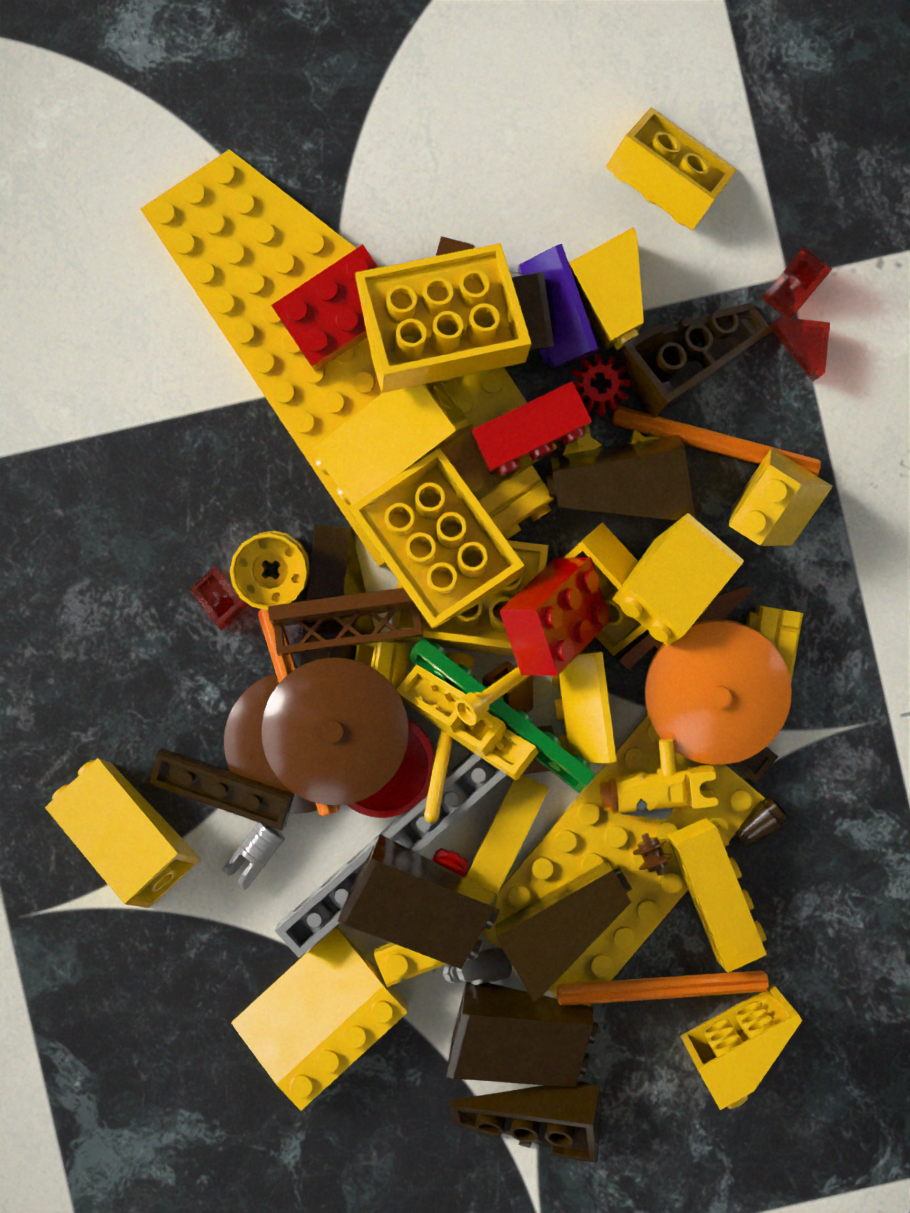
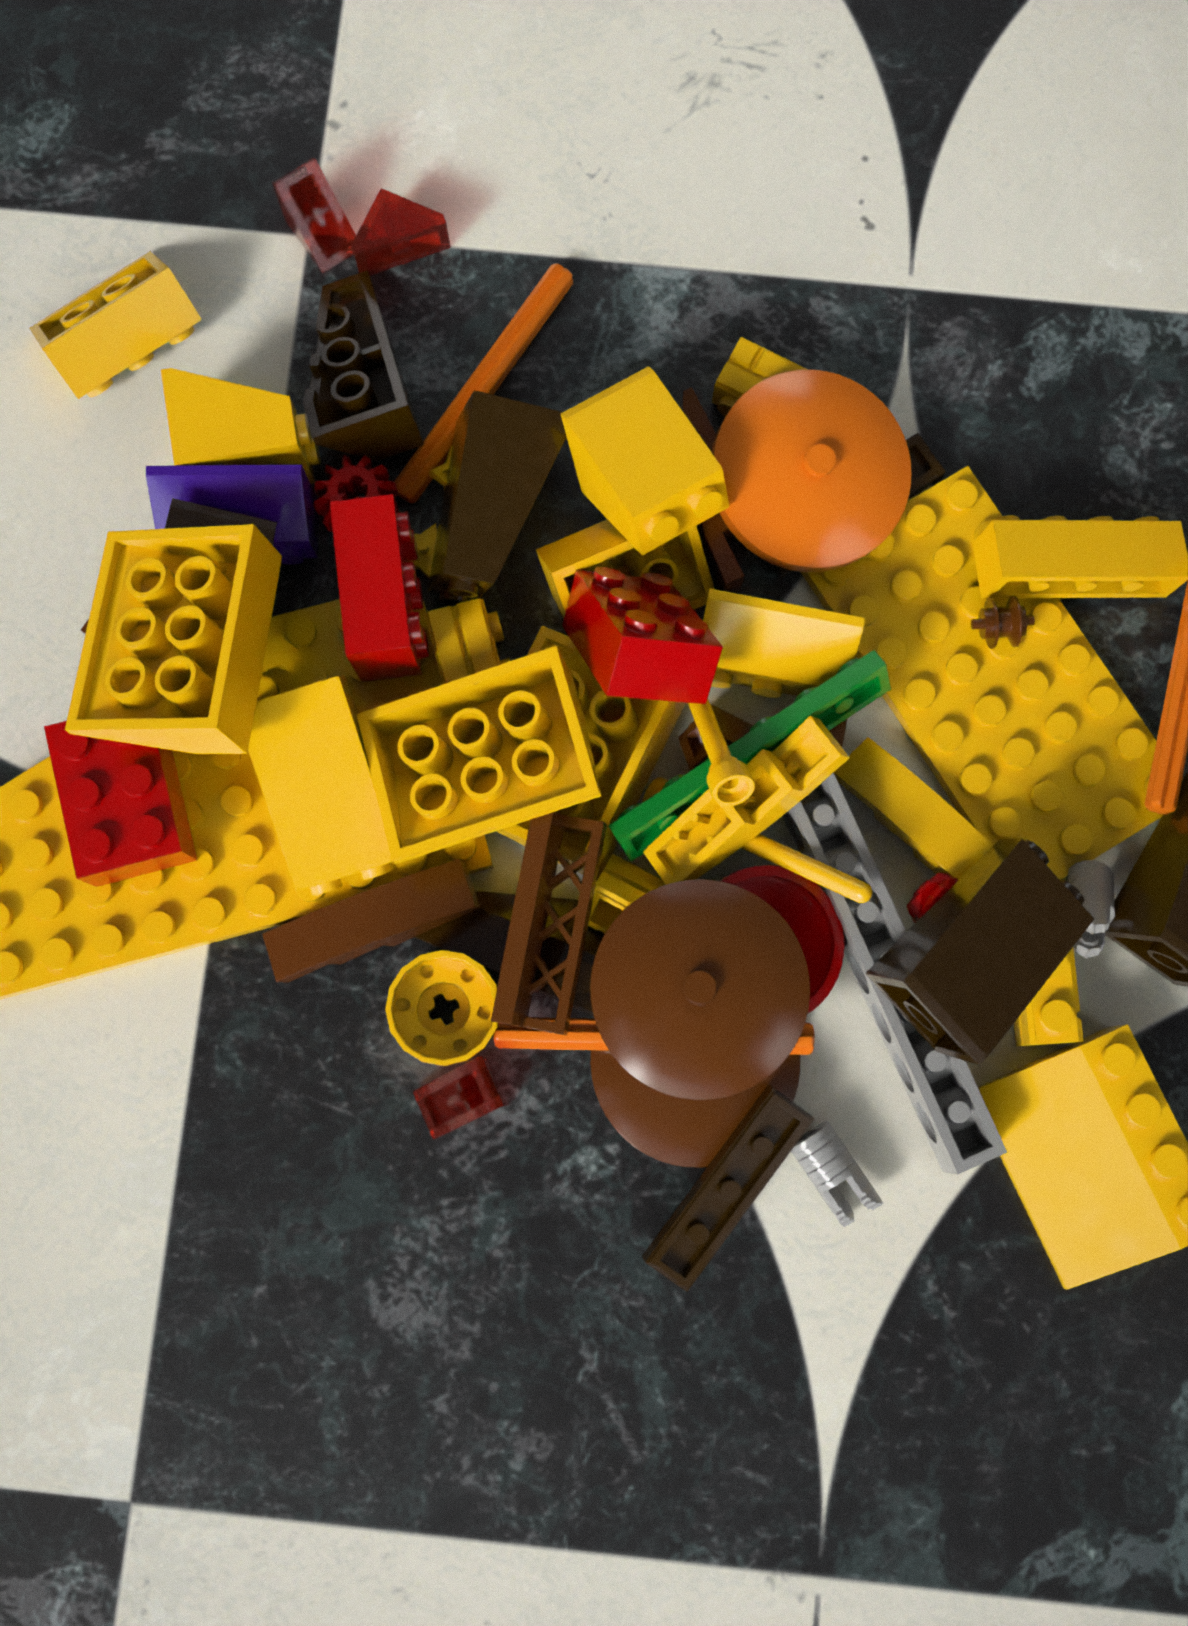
camera: 65 degrees left, 10 degrees down
(121, 834) = (747, 1358): yellow slope -> none
(313, 500) = (371, 920): none -> reddish brown slope
(562, 925) = (1069, 764): dark brown slope -> none
(659, 792) = (921, 587): yellow piece -> none
(762, 822) = (998, 477): dark brown cone -> none
(777, 501) = (579, 319): yellow slope -> none

